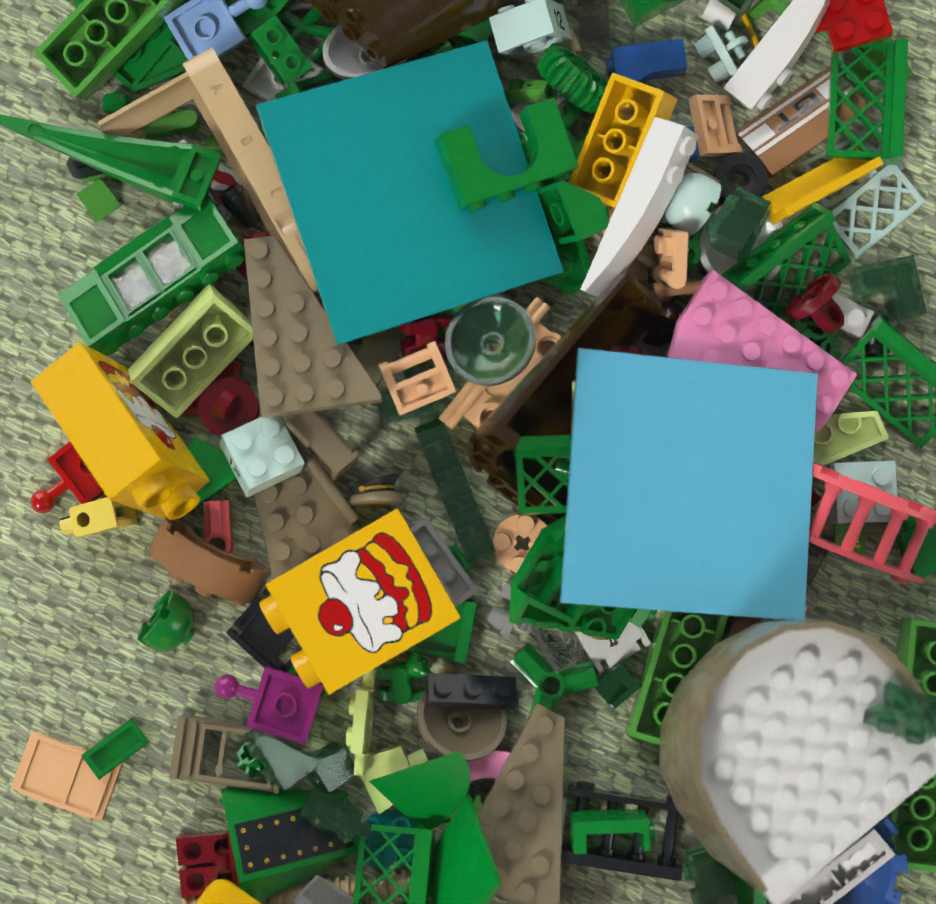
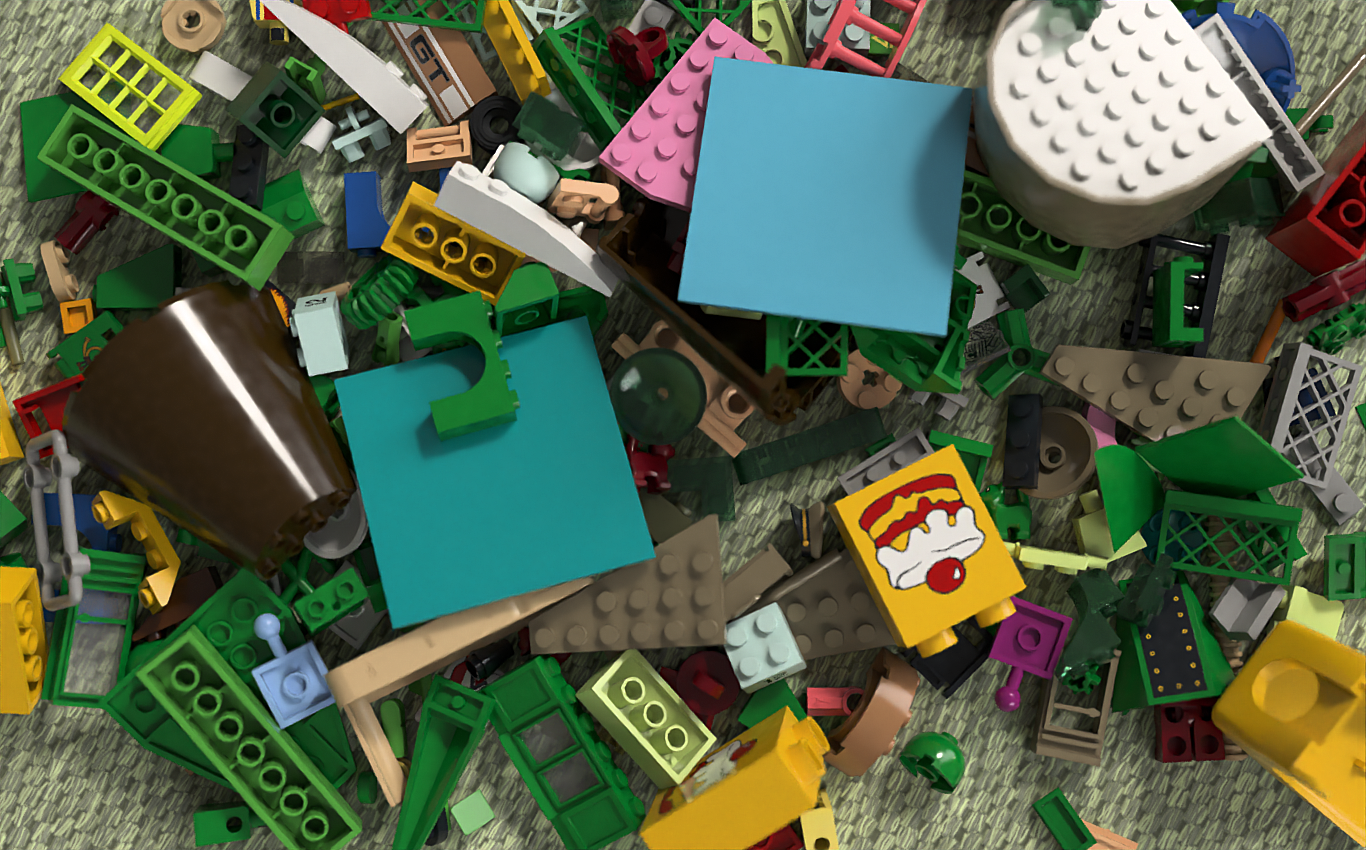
camera: 85 degrees left, 0 degrees up
(422, 387) = (703, 472): light nougat plate -> none

